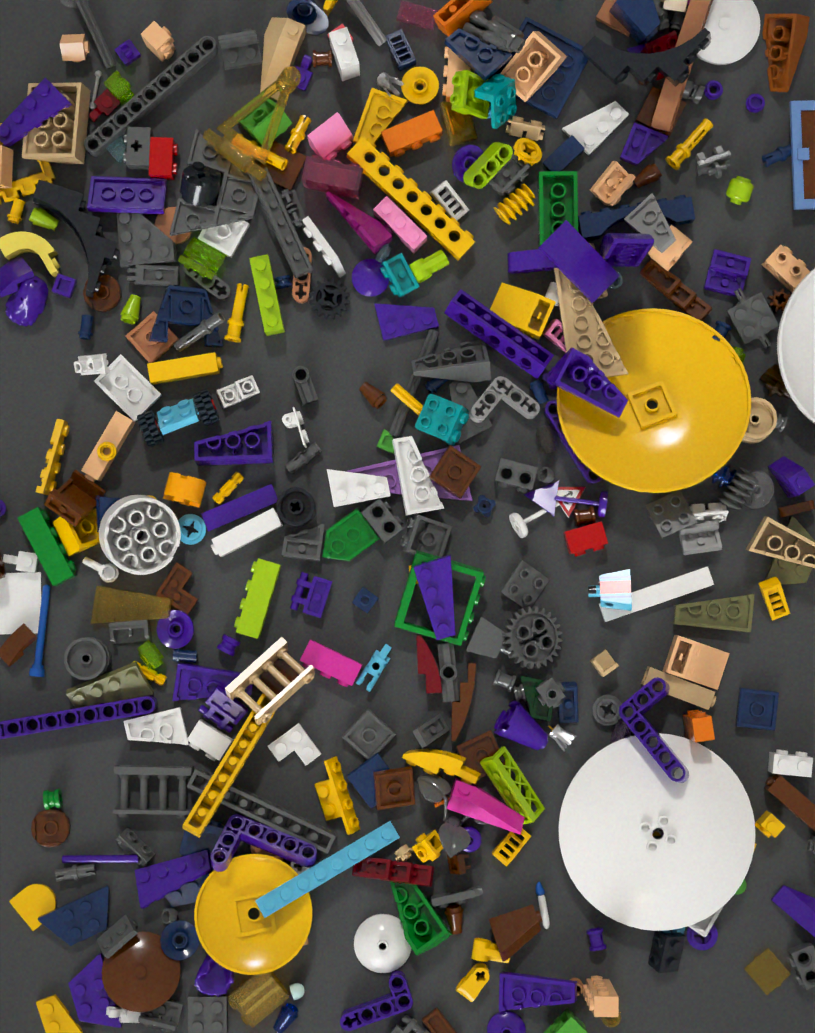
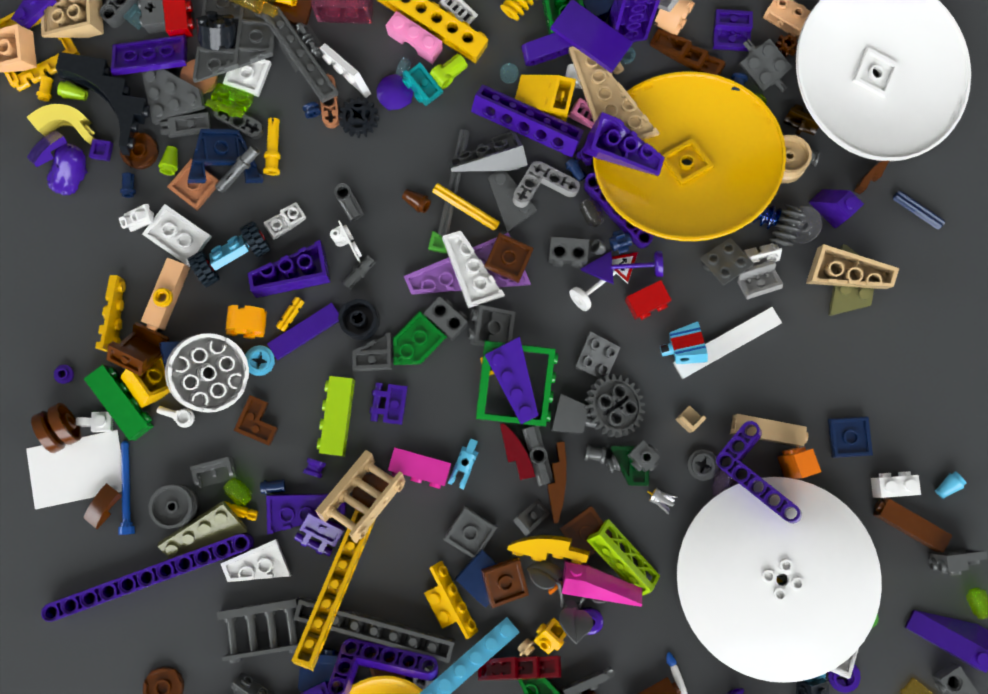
camera: 10 degrees left, 5 degrees down
(52, 799) = (160, 657): green wheel -> none
(126, 605) = (203, 447): clear yellow wing -> none
(167, 633) = (250, 461): dark purple dish -> none
(184, 368) = (228, 207): yellow brick -> none
(209, 740) = (310, 567): white brick -> none
(246, 533) = (314, 354): white brick -> none
(267, 295) = (298, 124): lime brick -> none
(295, 740) = (398, 552): white plate -> none
(356, 487) = (415, 290): white wing -> none
(365, 600) = (443, 398): dark blue brick -> none
(367, 228) = (382, 45): magenta wedge -> none
(404, 320) = (434, 126): dark purple wing -> none
(434, 384) = (473, 181): dark blue pin -> none
(442, 419) = (487, 209): teal bracket -> none
(457, 864) = (583, 649): reddish brown tile -> none
(489, 505) = (543, 282): dark blue plate -> none
(490, 278) = (509, 73): none -> clear light blue tile
(506, 861) = (636, 629): yellow slope -> none
(520, 727) = (620, 497): dark purple cone -> none
(569, 474) = (620, 241): none -> dark blue gear
(569, 708) = (664, 471): dark blue slope -> none
(584, 516) = (642, 279): reddish brown bush -> none
(695, 662) = (780, 401): light nougat slope -> none
(723, 613) = (795, 350): olive wing -> none
(769, 825) = (889, 551): yellow brick -> none
(770, 587) = (836, 316): yellow slope -> none
(796, 508) = (846, 235): reddish brown beam -> none

